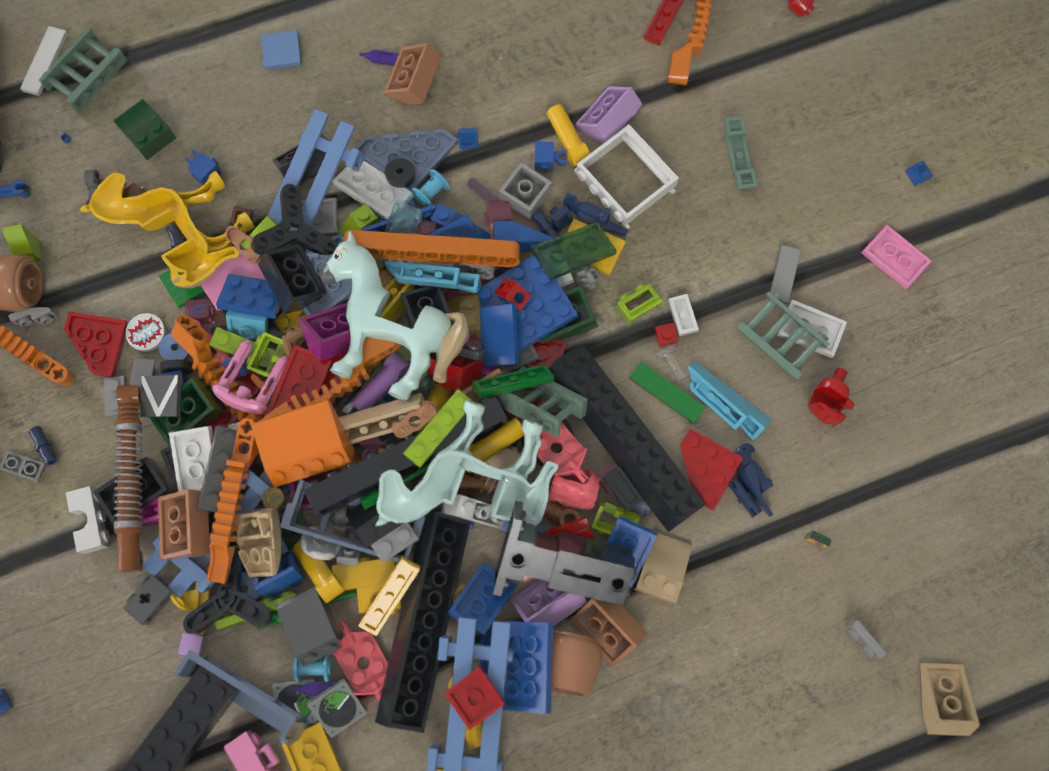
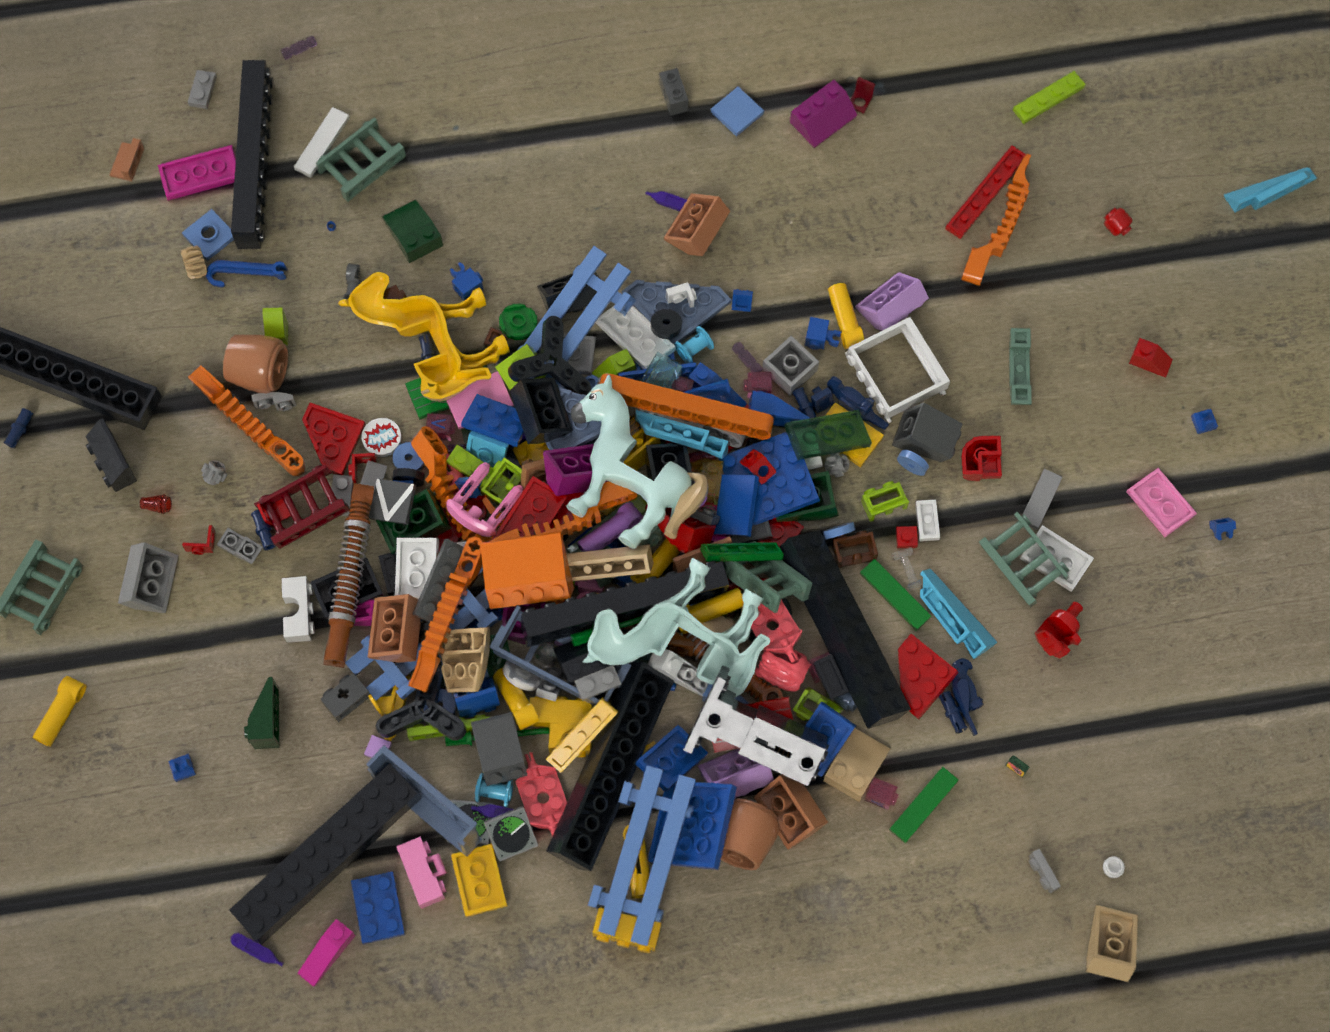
camera: 10 degrees right, 5 degrees down
(52, 426) = (280, 509): none -> red bracket
(70, 638) = (263, 721): none -> dark green slope
(92, 426) = (318, 516): none -> dark red fence
(122, 367) = (357, 459): none -> red bracket
(236, 236) = (492, 358): nougat piece -> none
(258, 196) = (517, 321): none -> green tile
(268, 497) = (487, 612): clear yellow cone -> none
(281, 50) = (565, 174): medium blue tile -> none
(407, 141) = (679, 293): none -> white bracket
(425, 412) = (652, 563): nougat piece -> none
(437, 429) = (659, 581): lime plate -> none
(475, 698) = (648, 842): red plate -> none
(601, 341) = (839, 530): none -> medium blue piece
(623, 344) = (858, 539): none -> reddish brown window
(658, 262) = (913, 462): none -> medium blue piece
(666, 231) = (928, 433): none -> dark grey slope
(694, 593) = (882, 794): none -> clear pink brick
(723, 246) = (982, 458): none -> red brick
(735, 595) = (923, 805): none -> green tile
(857, 122) = (1151, 358): none -> red slope
(929, 621) = (1113, 867): none -> white plate
(959, 267) = (1222, 525): none -> blue tile

